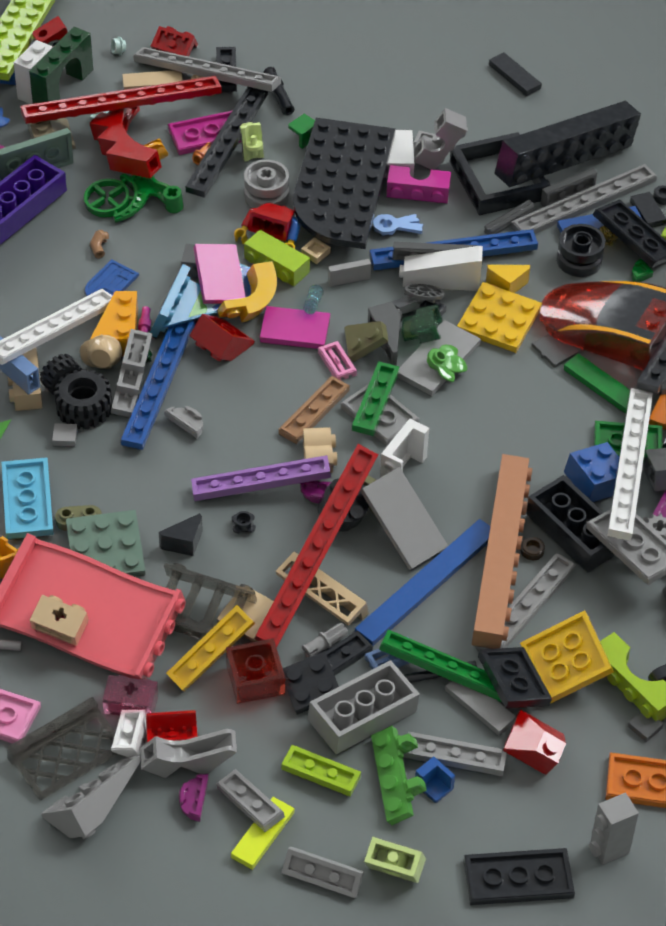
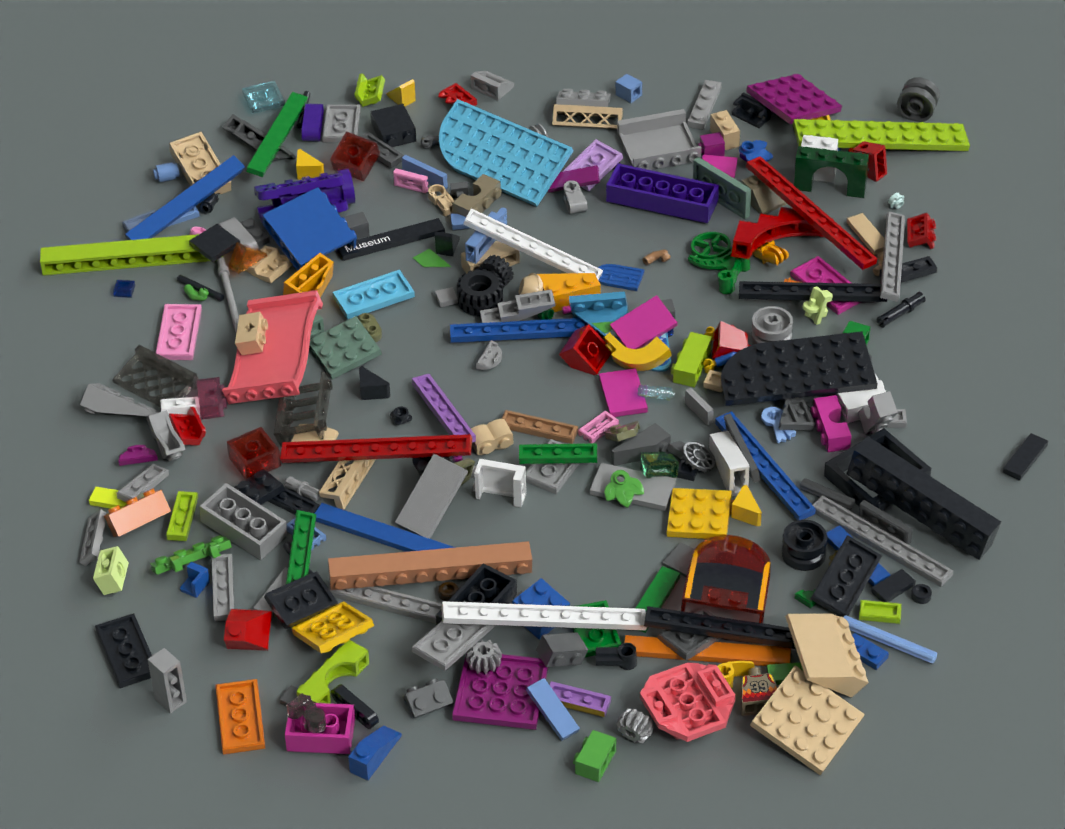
camera: 75 degrees right, 5 degrees down
(210, 648) = (270, 422): yellow plate -> none
(307, 813) = (136, 512): none -> brick
(397, 206) = (796, 415): none -> dark grey wing

